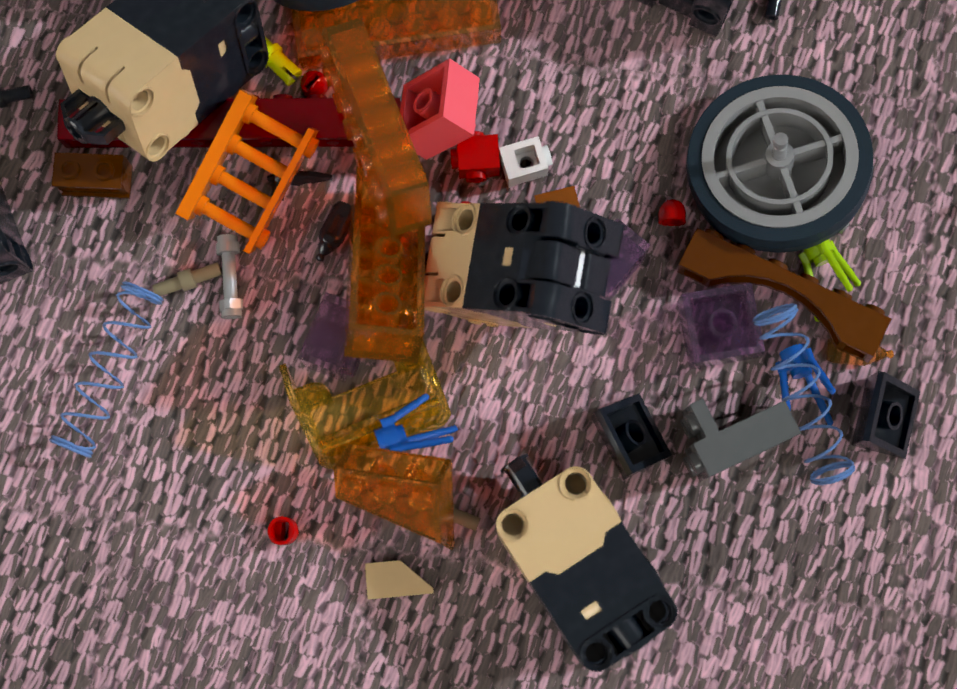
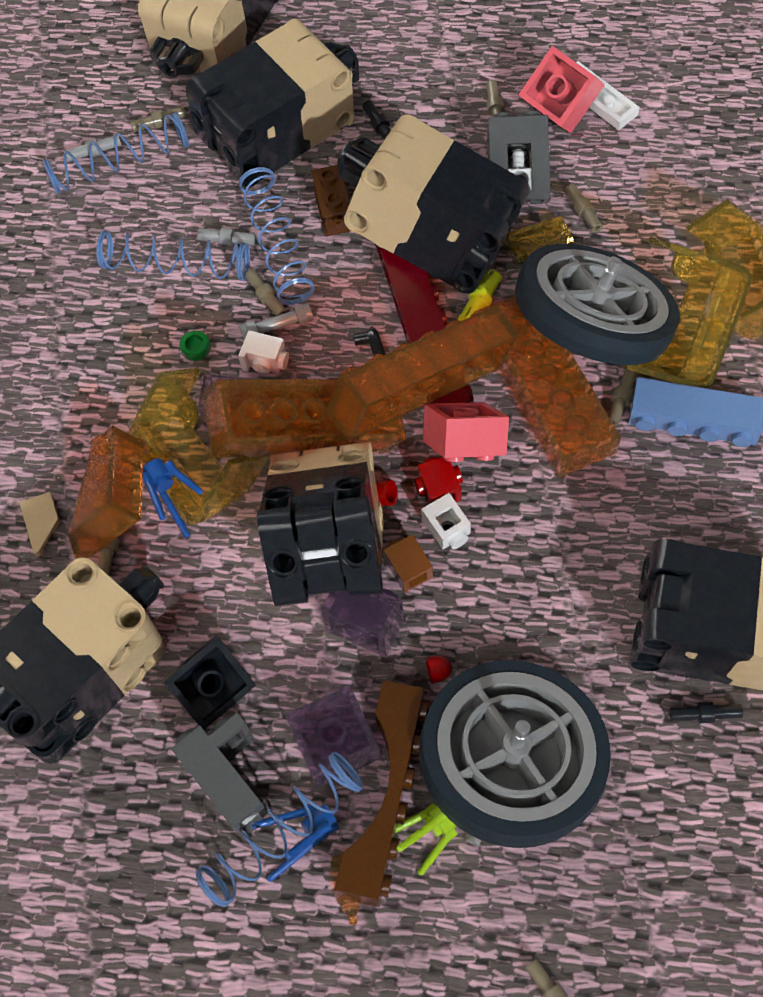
camera: 75 degrees right, 15 degrees down
(95, 305) = (226, 236): none -> light grey bar
(199, 238) = (305, 296): none -> medium blue piece
(228, 372) = (195, 345): none -> green tile
(229, 142) = (356, 275): orange fence -> none
(268, 297) = (263, 353): none -> white brick
(277, 530) = (66, 421): red hinge -> none
(886, 415) = (285, 932): black slope -> none

